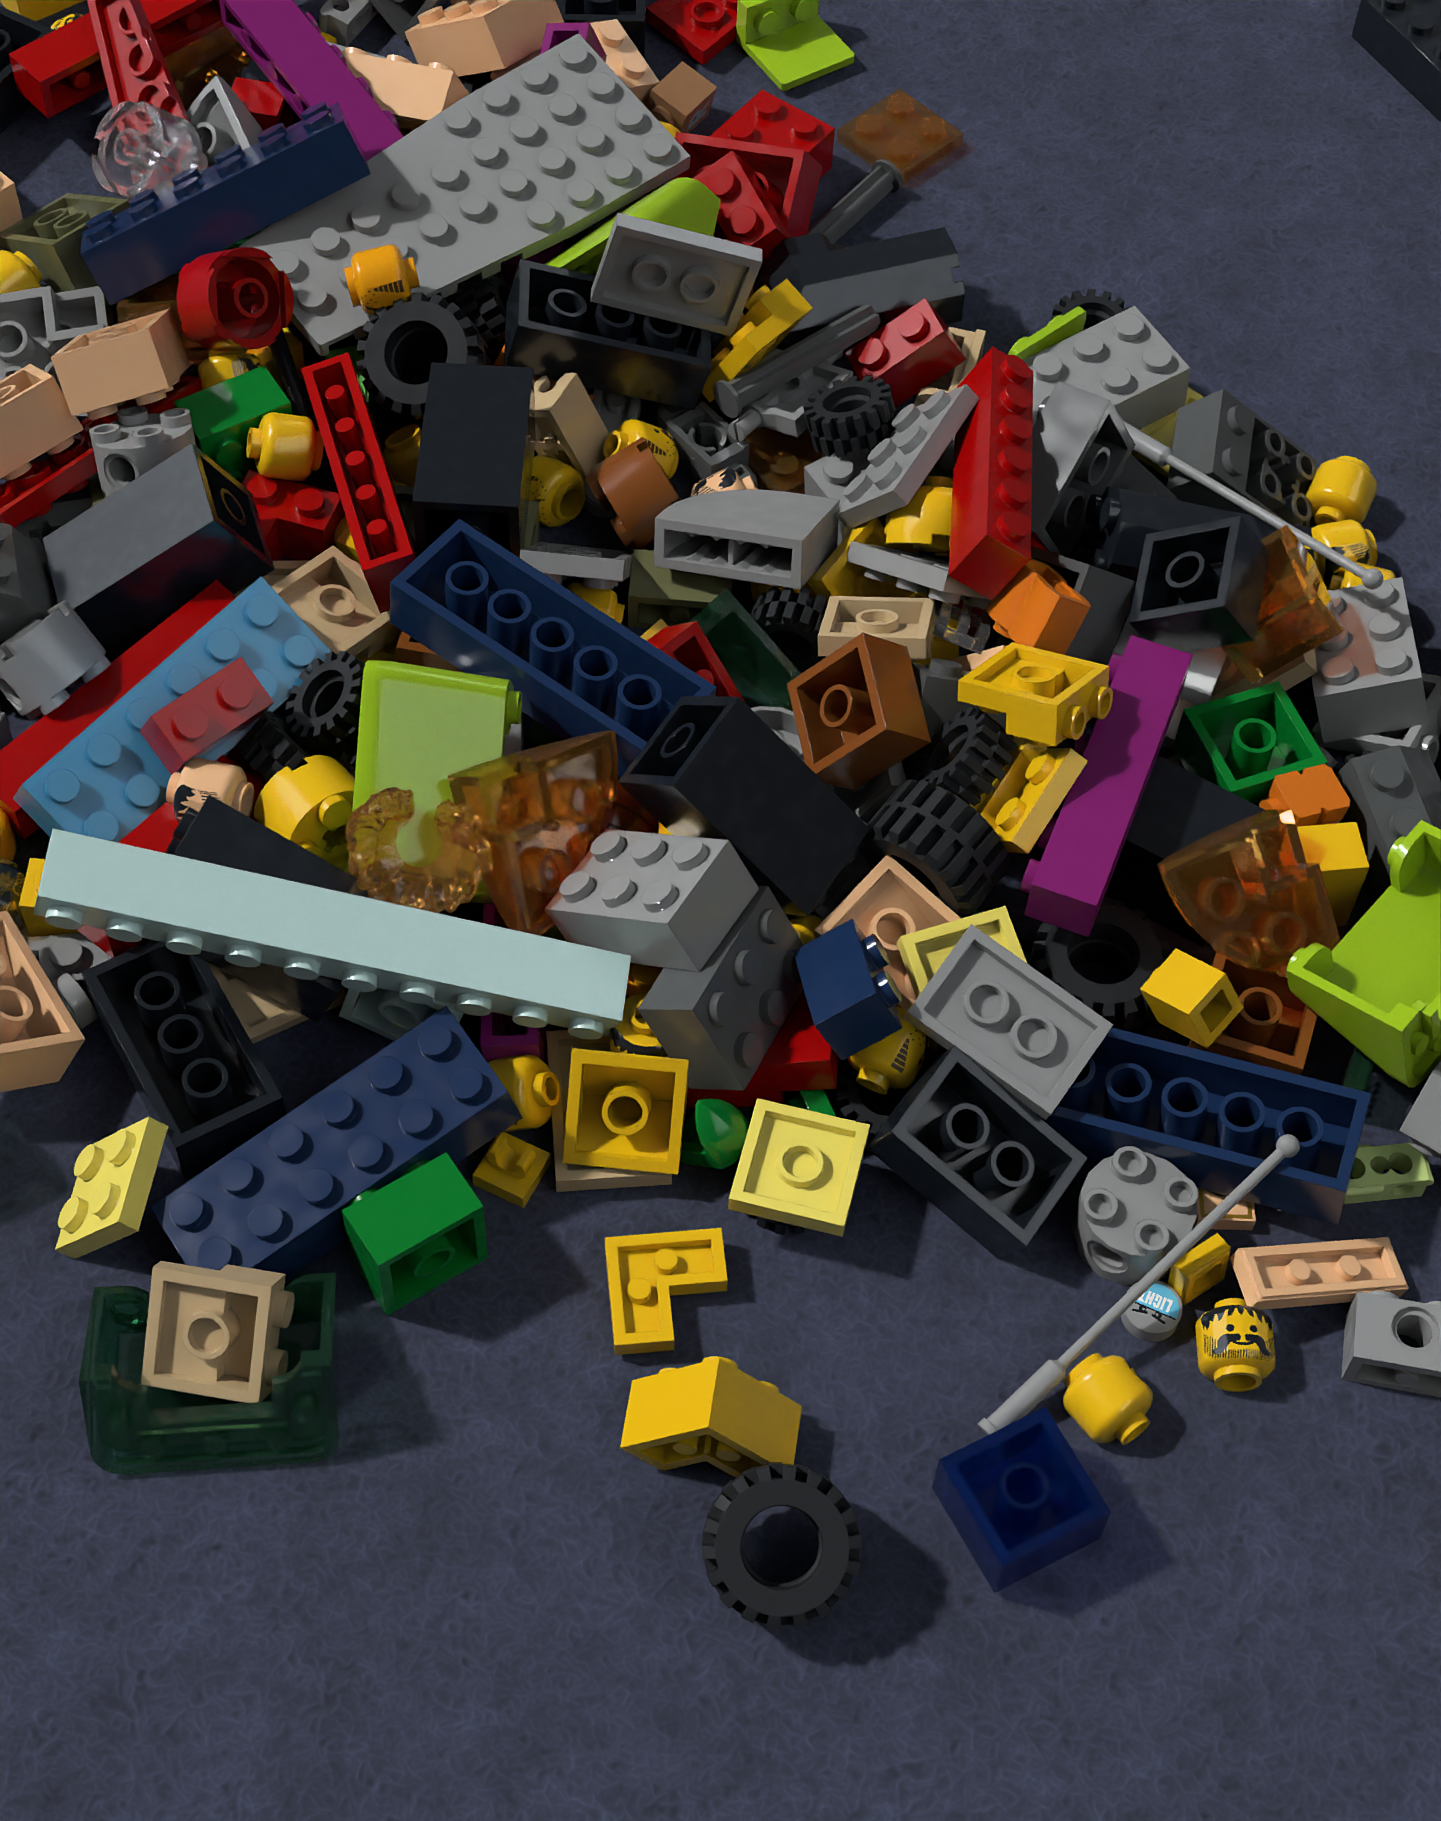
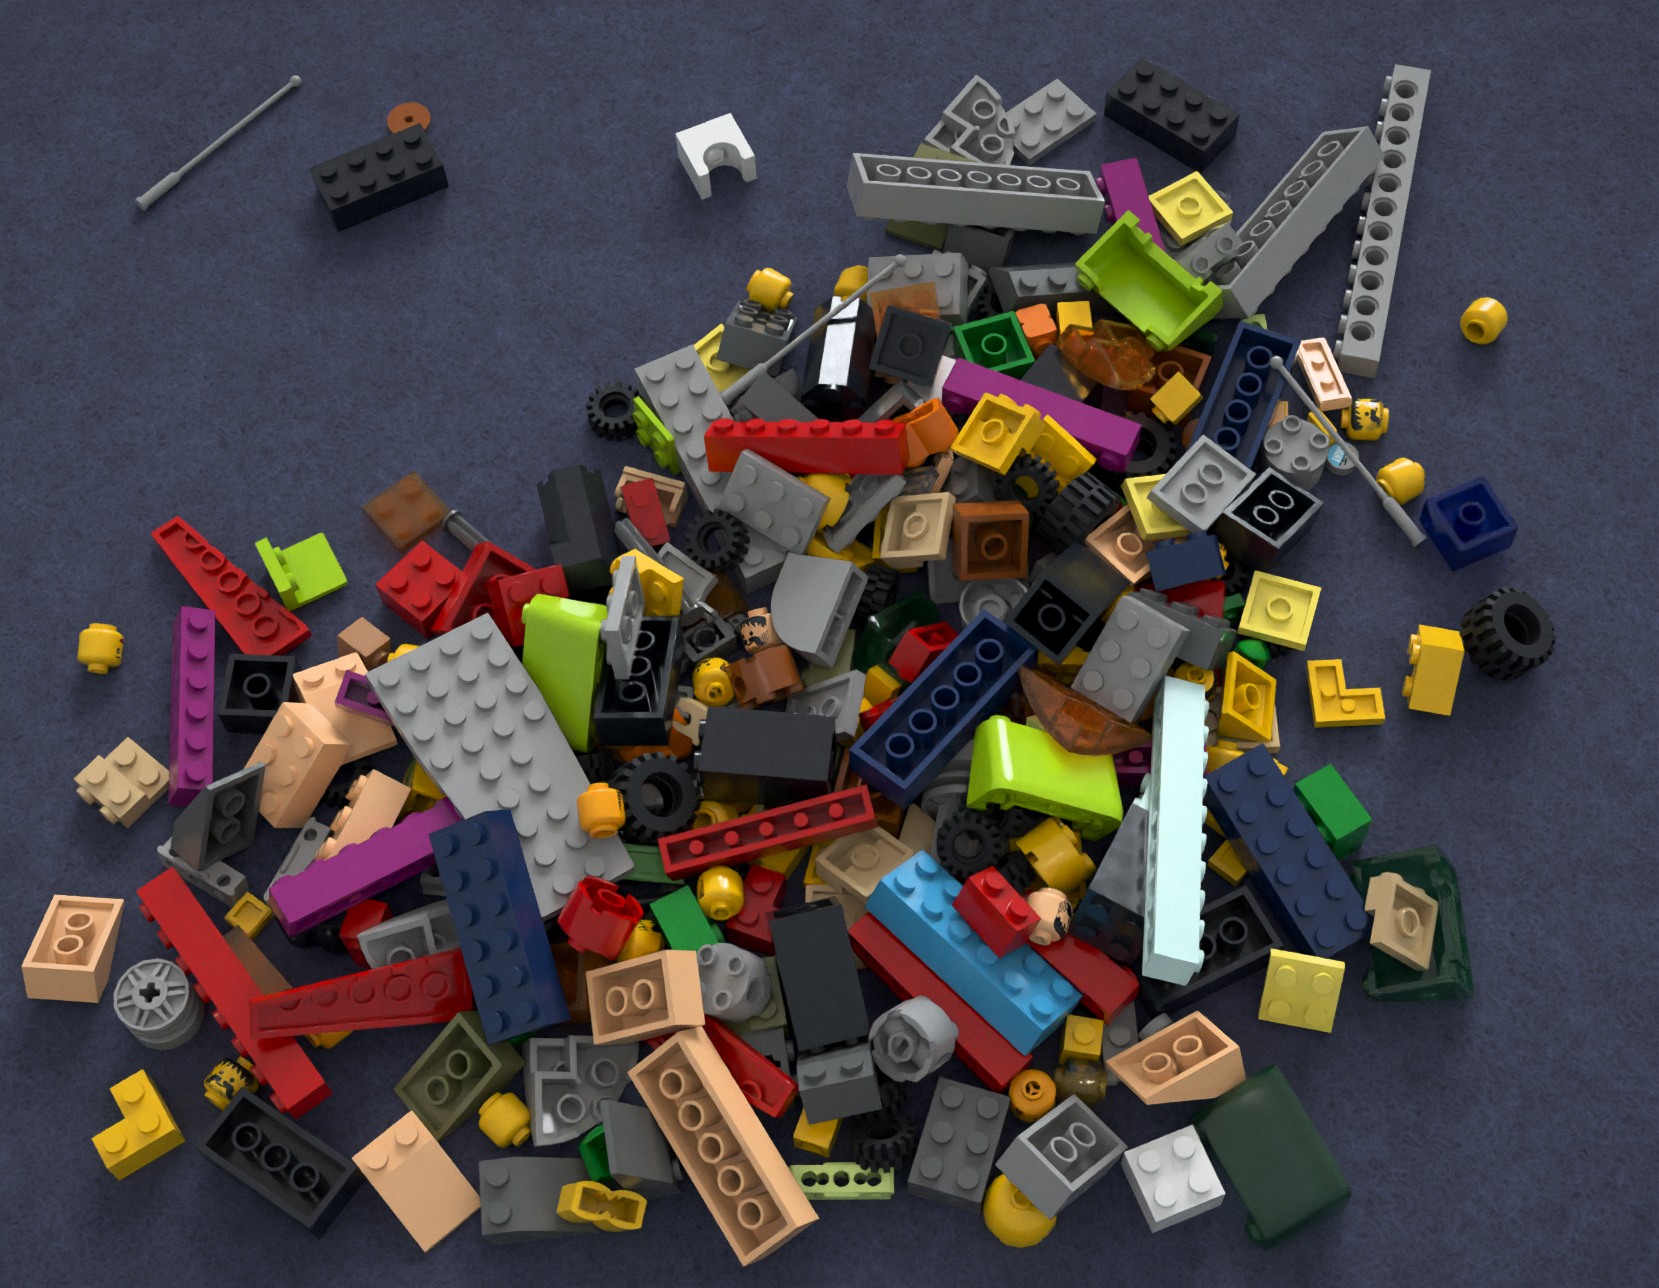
camera: 80 degrees left, 5 degrees up
(144, 149) = (451, 989): clear brick -> none
(388, 878) = (1137, 783): clear orange piece -> none
(1347, 539) = (813, 293): yellow head -> none

